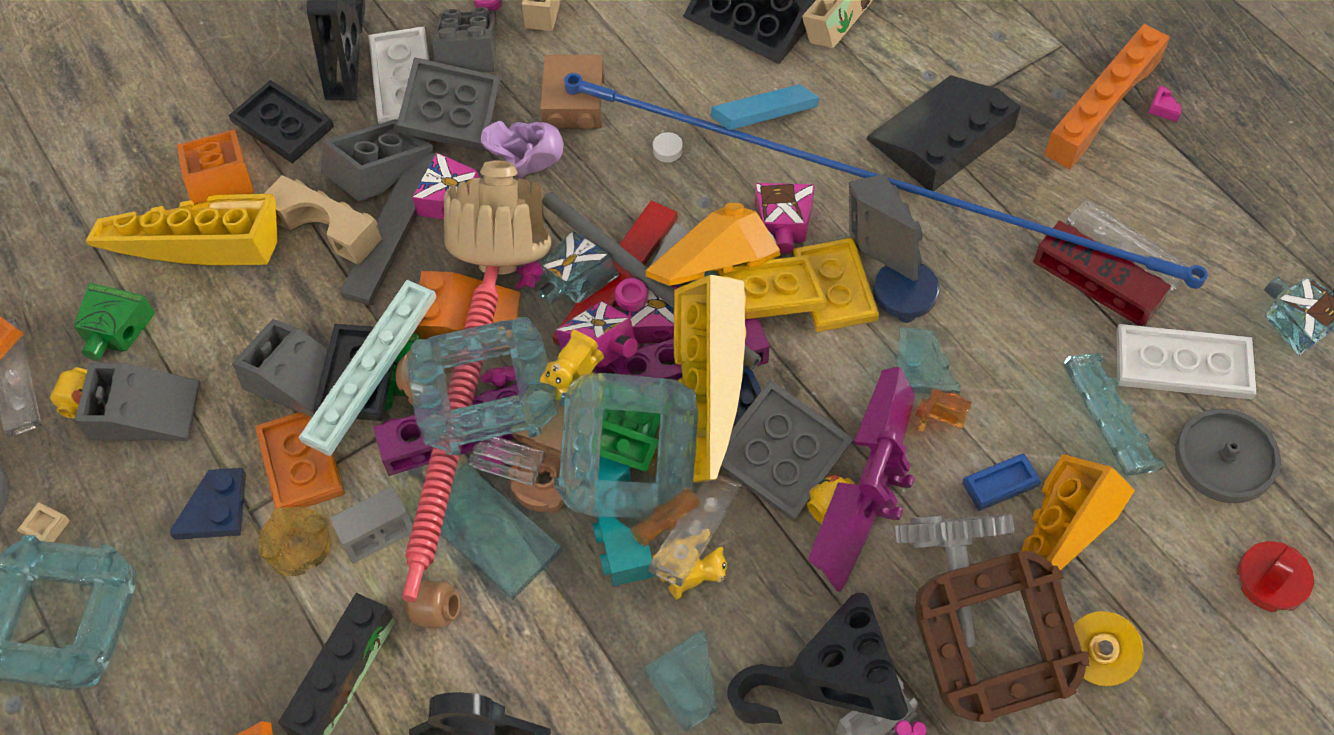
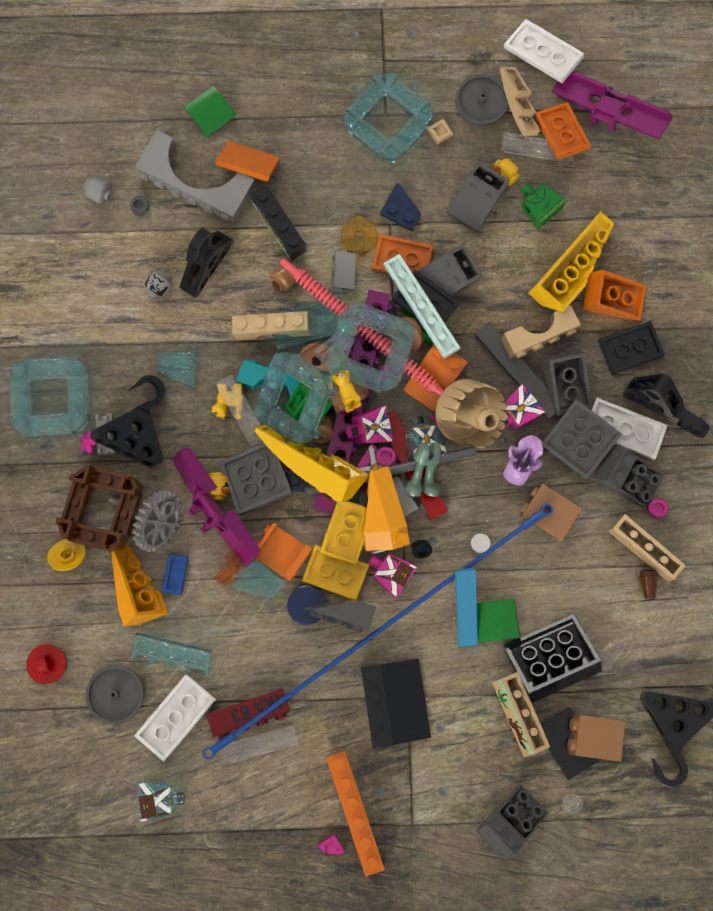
camera: 115 degrees right, 20 degrees up
(529, 567) = (288, 323): none -> tan arch
(635, 234) = (424, 456): none -> sand green piece
(682, 504) = (252, 397): clear orange pin -> none
(722, 197) = (421, 549): none -> black tile
(752, 75) = (497, 620): none -> green slope
(856, 354) = (282, 552): none -> orange panel

